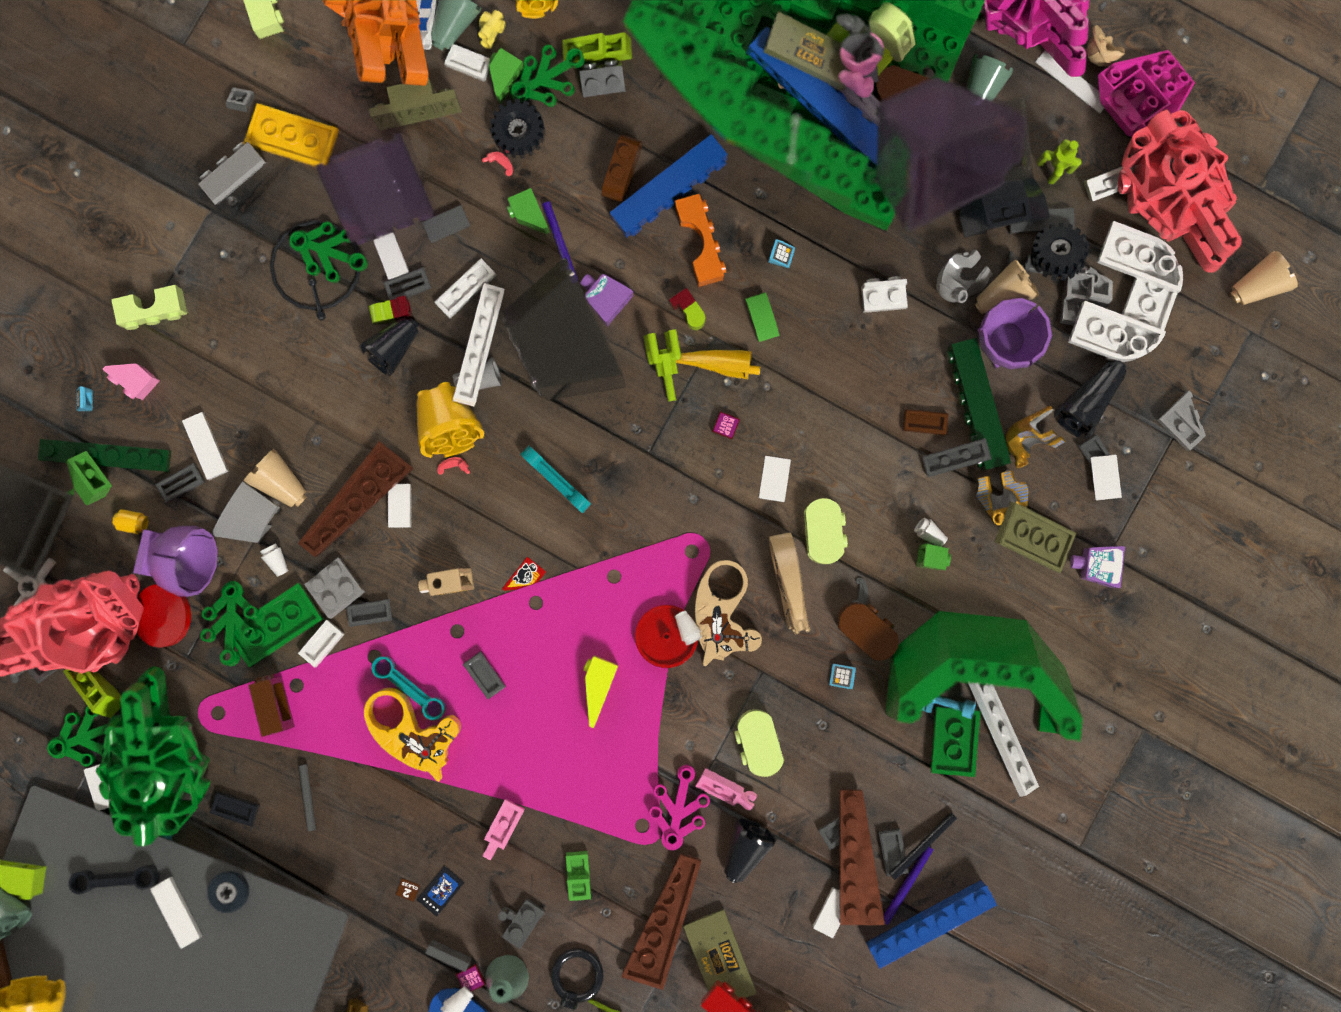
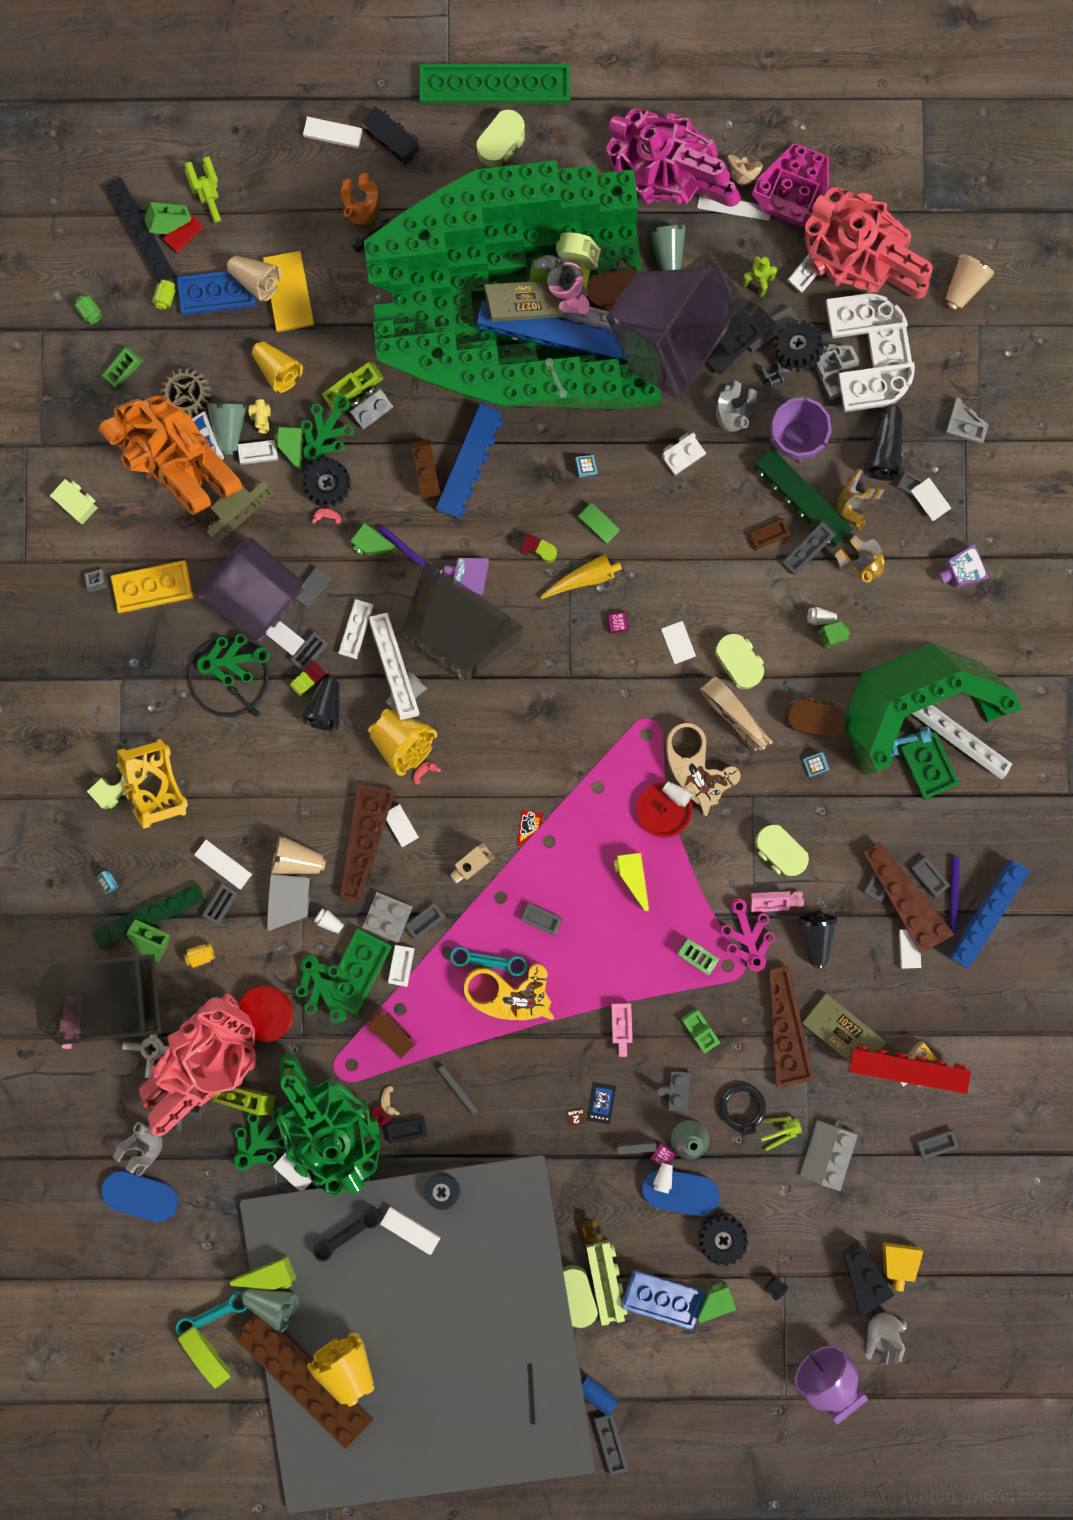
camera: 30 degrees left, 0 degrees up
(133, 377) = (138, 843): bright pink slope -> none
(163, 298) = (143, 809): none -> yellow fence
(178, 559) = (255, 961): medium lavender plate -> none
(217, 778) = (381, 1115): none -> dark red tile
(230, 769) = (385, 1102): none -> tan piece
(231, 172) = (124, 640): light grey slope -> none
(555, 479) = (510, 737): teal piece -> none
(609, 784) = (684, 948): none -> bright green slope
(664, 359) = (542, 598): lime plant -> none
(692, 215) = (500, 474): orange arch -> none
(922, 846) = (949, 859): black bar -> none
(1008, 285) = (774, 394): tan cone -> none
(1035, 537) = (903, 575): olive tile -> none

